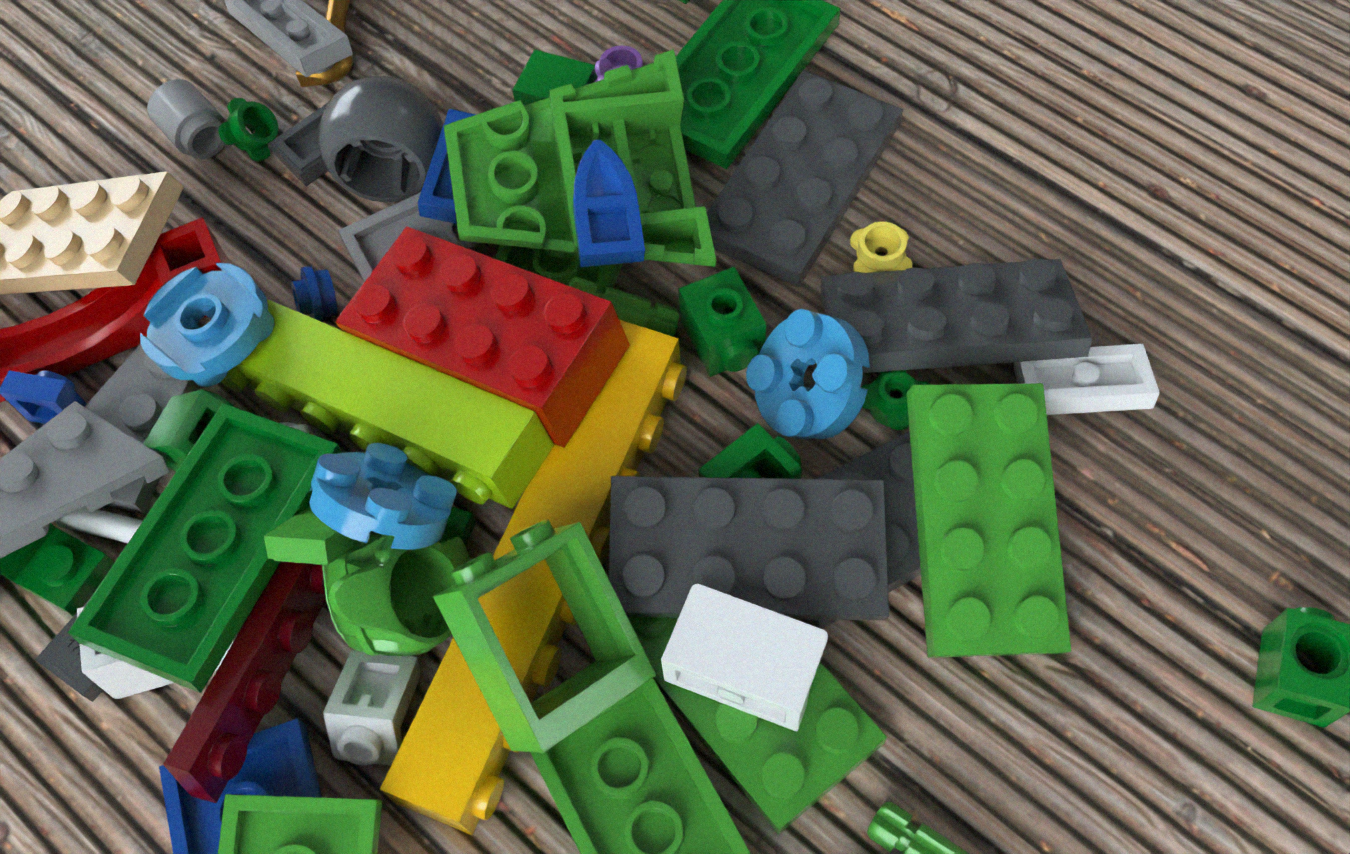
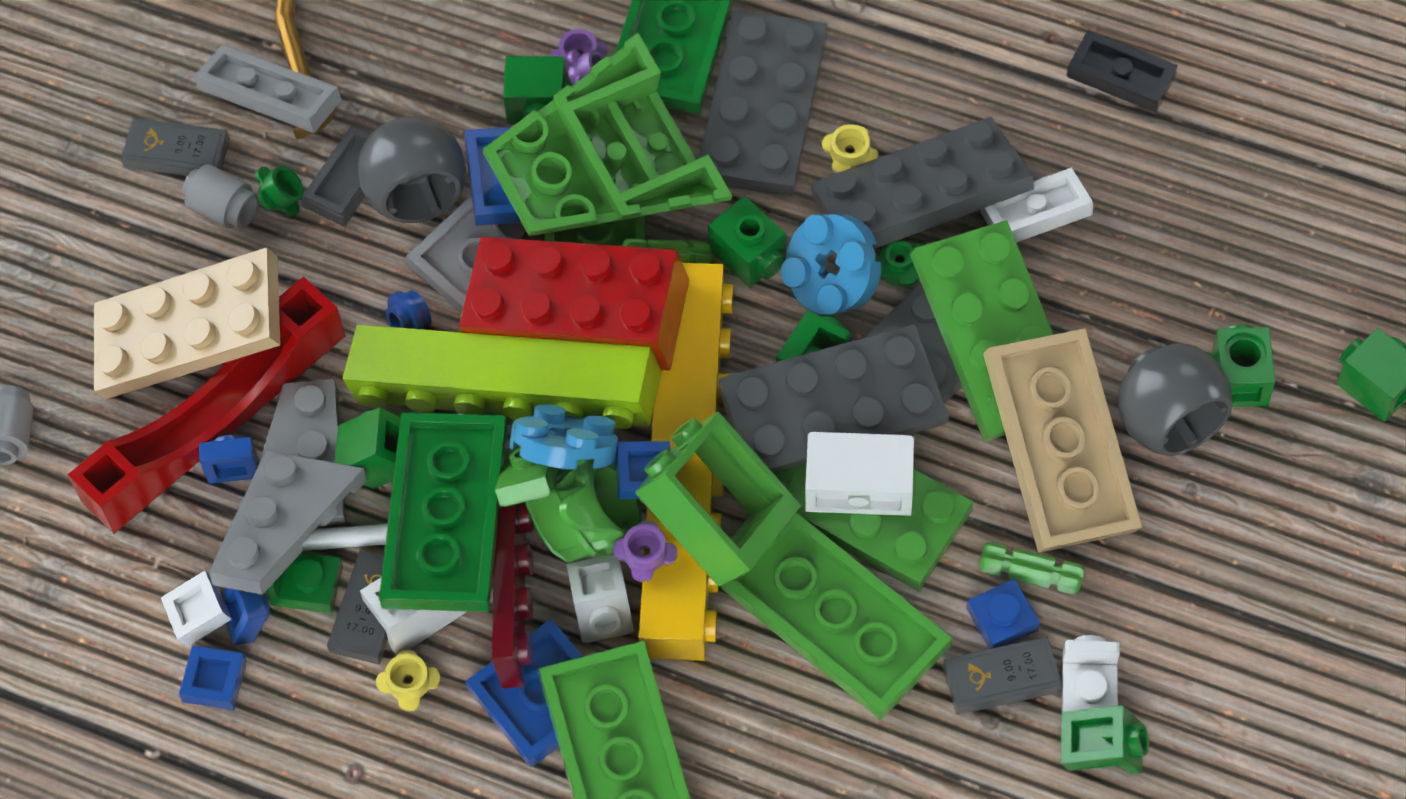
camera: 20 degrees left, 0 degrees up
(92, 723) = (402, 666): none -> light yellow plate
(167, 55) = (173, 147): none -> dark grey tile
(206, 353) = (367, 378): dark azure plate -> none
(413, 663) = (644, 536): none -> medium lavender plate
(460, 545) = (630, 464): none -> blue plate
(606, 210) = (640, 180): blue plate -> none
(1031, 699) = (1062, 440): none -> tan plate
(1204, 686) = (1174, 398): none -> dark grey wheel
(1236, 249) = (1121, 71): none -> black plate

